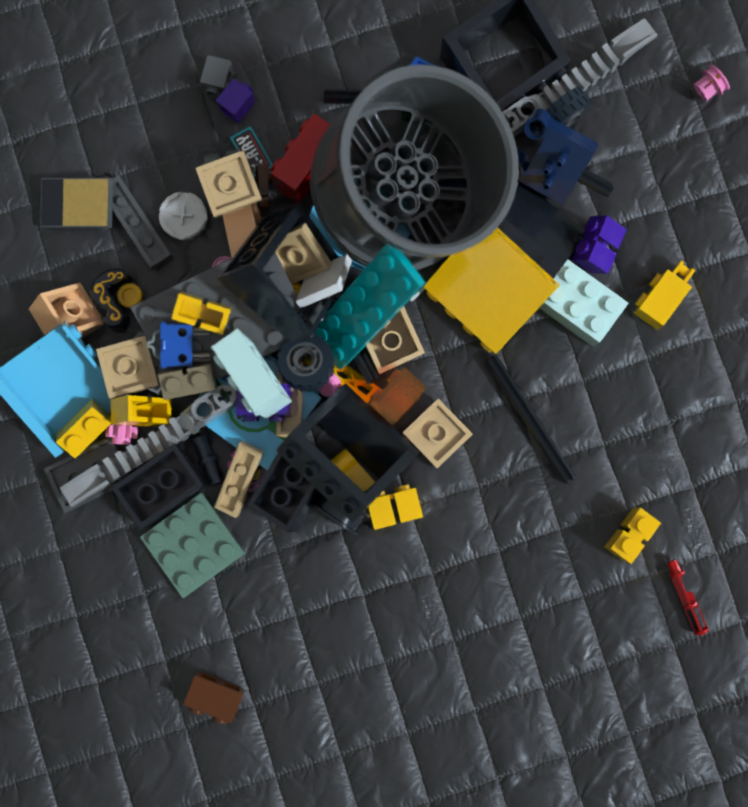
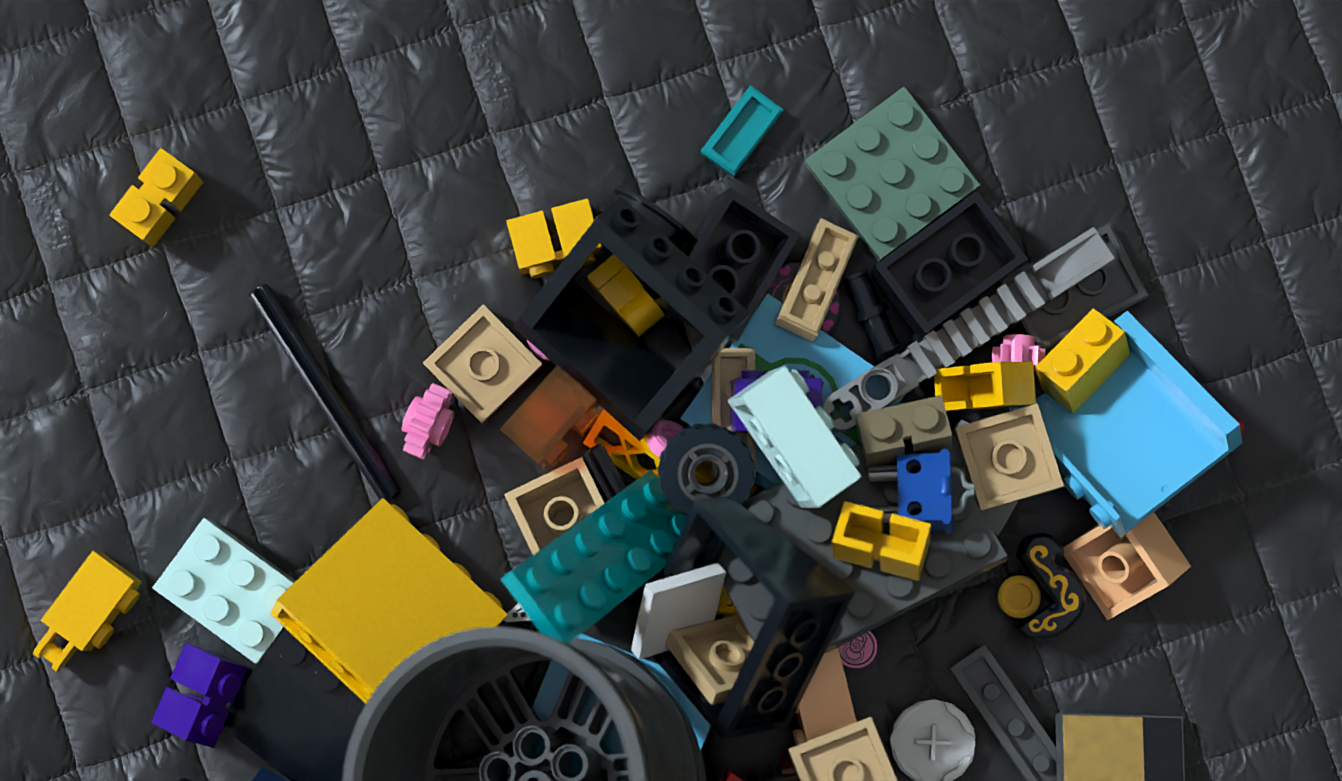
camera: 175 degrees right, 0 degrees up
(281, 572) = (741, 131): none -> teal tile
(469, 398) = (427, 421): none -> bright pink gear
(687, 598) = (69, 100): red piece -> none

